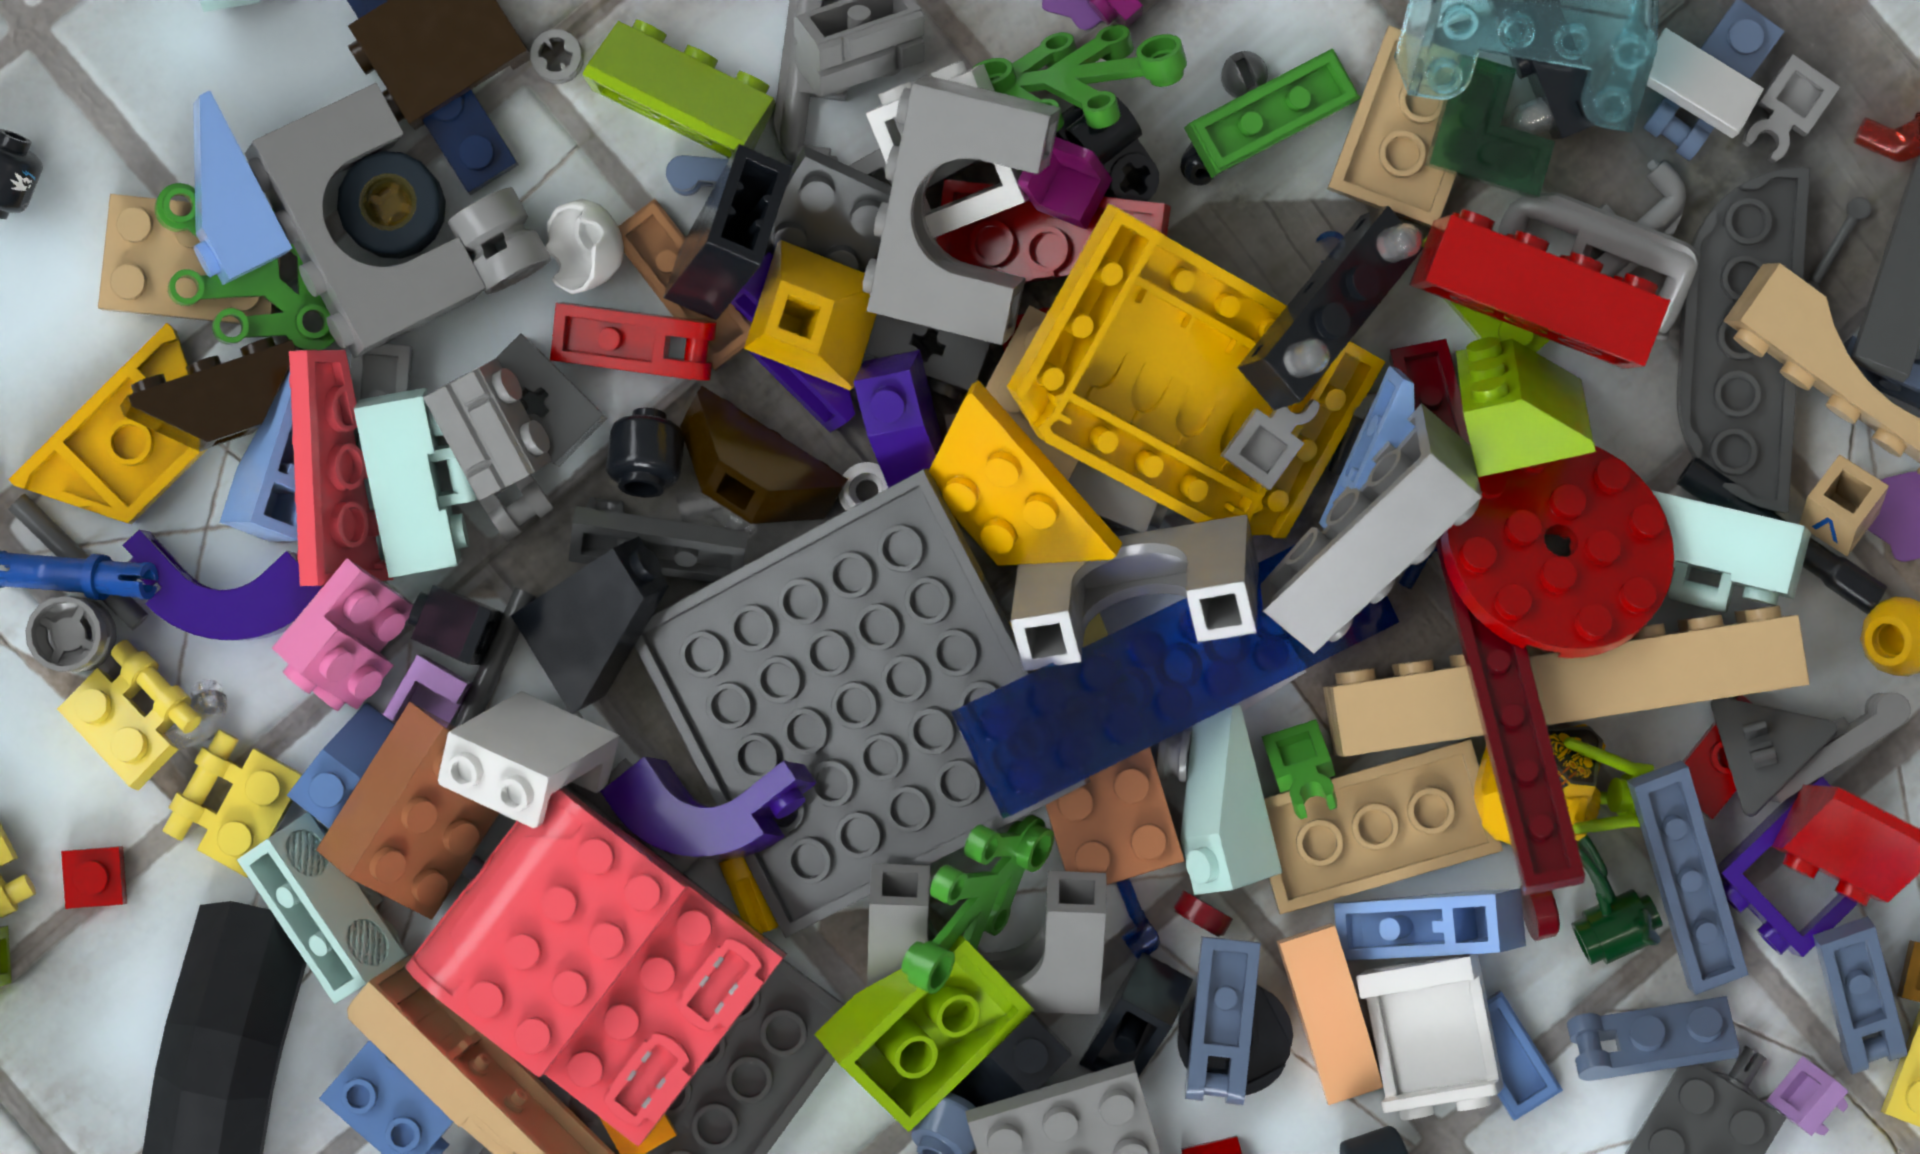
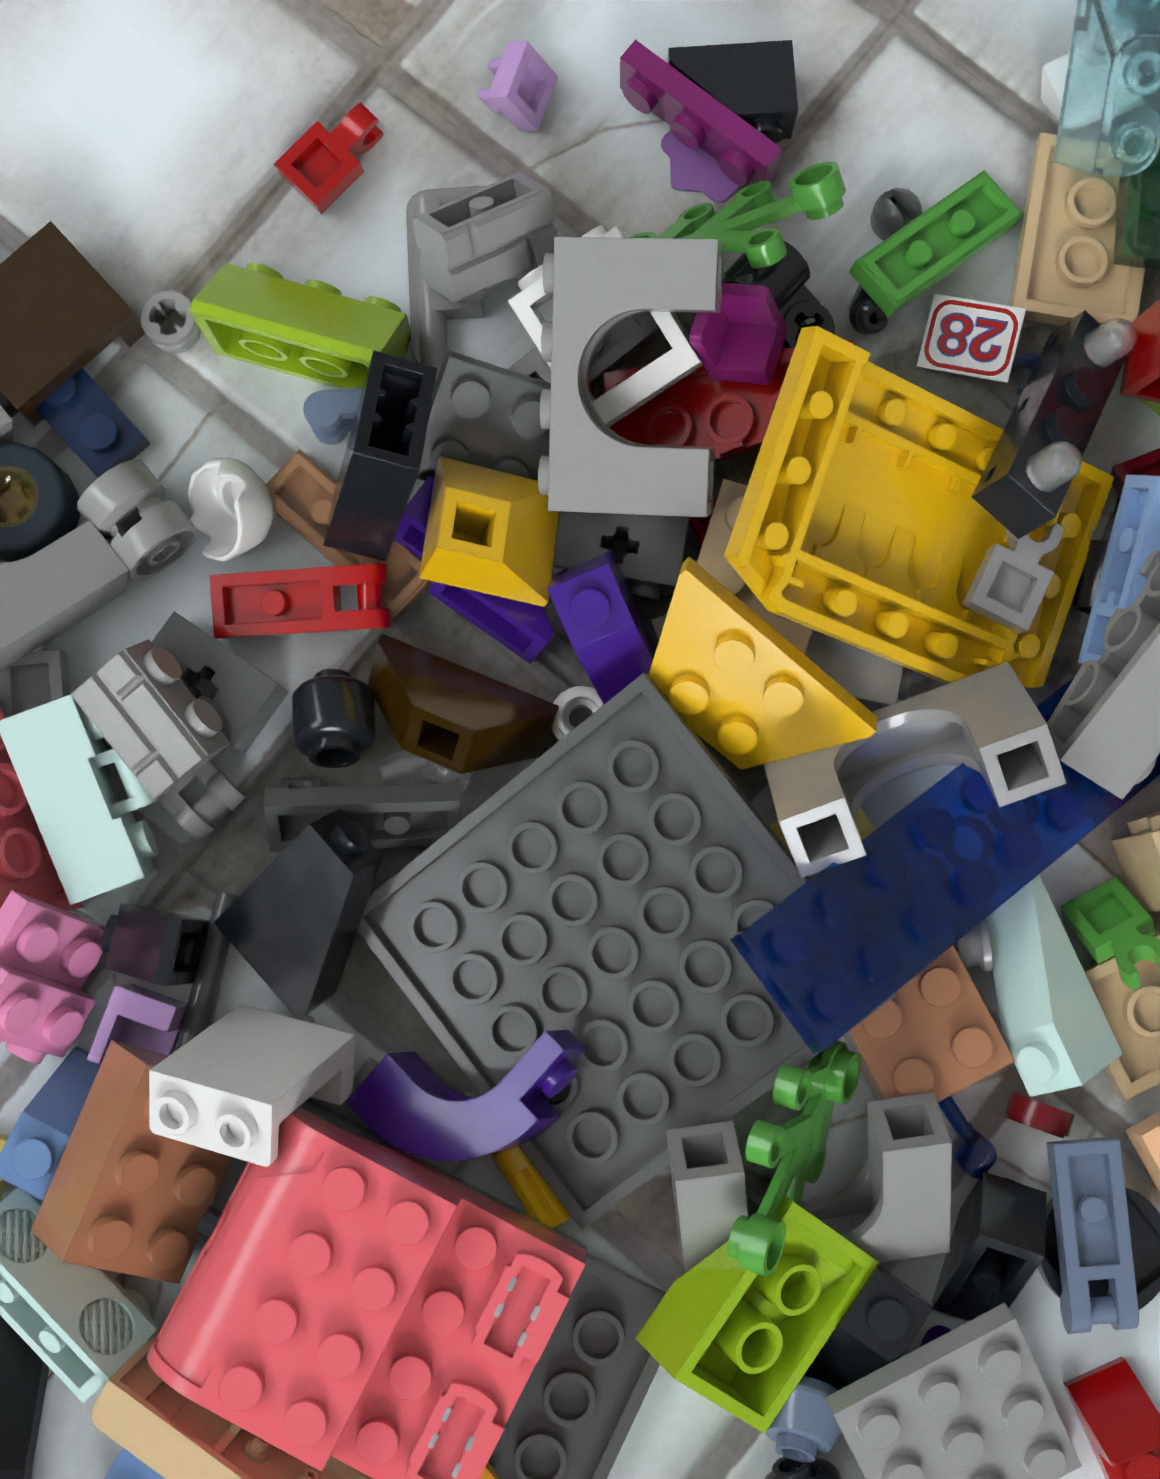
camera: 10 degrees left, 5 degrees down
(1287, 205) = (971, 337): none -> sticker

